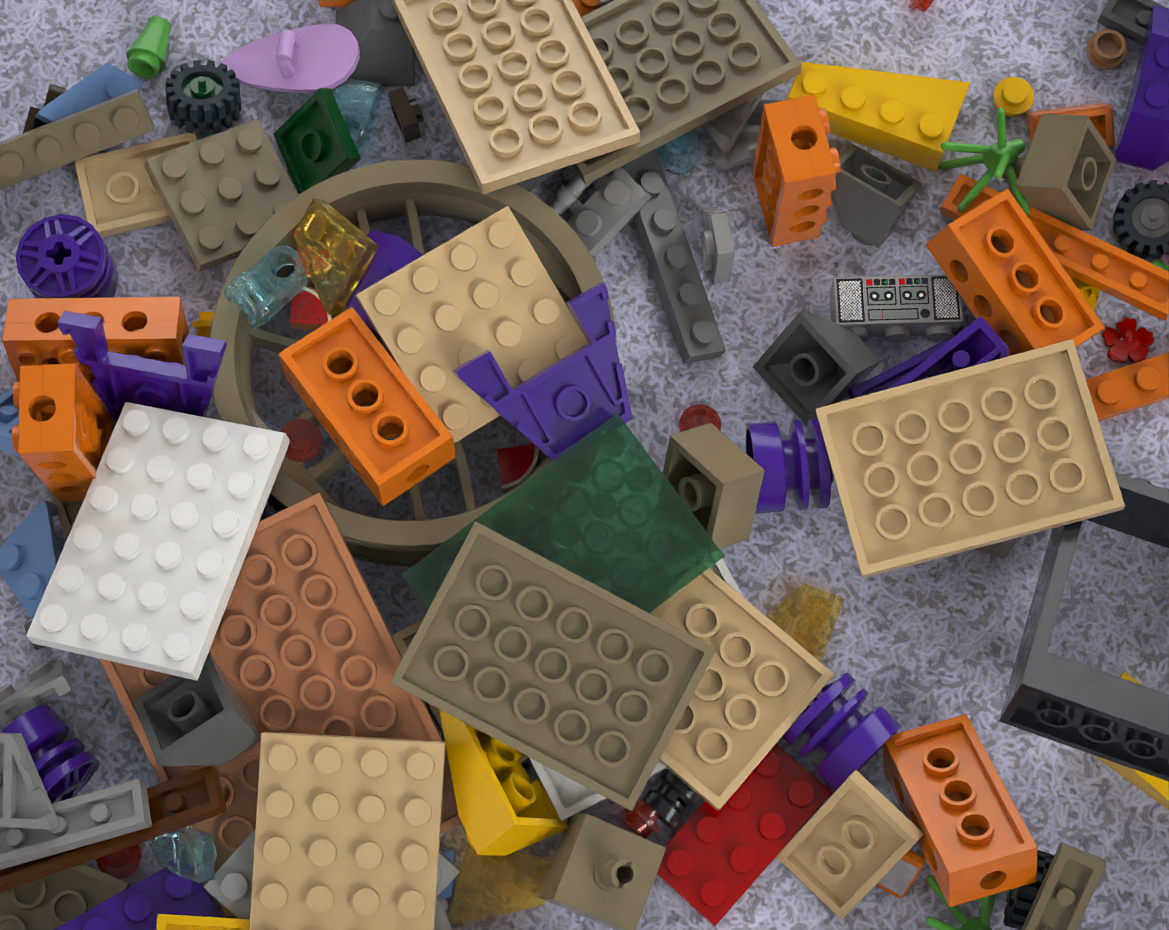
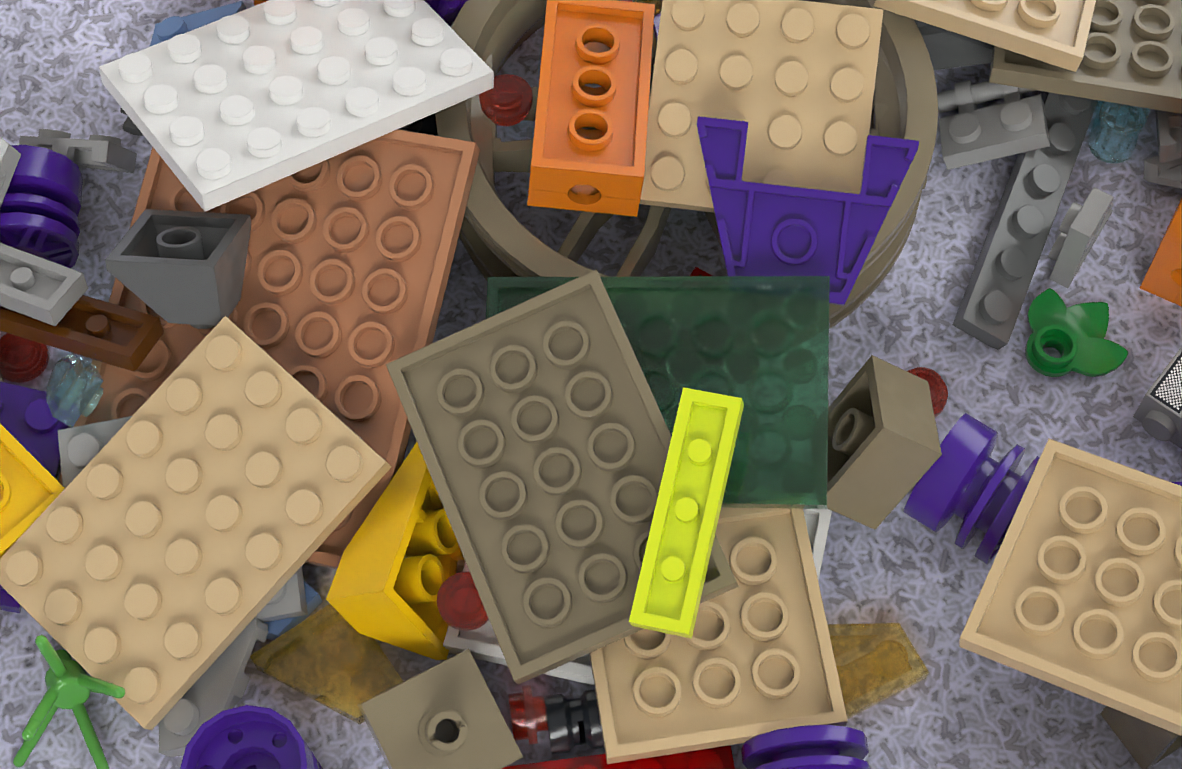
camera: 40 degrees right, 10 degrees down
(553, 787) = (460, 603): none -> clear red plate
(658, 632) = (686, 513): none -> neon yellow plate
(757, 310) = (1075, 333): none -> green plate
(815, 364) = (1096, 409): dark grey slope -> none

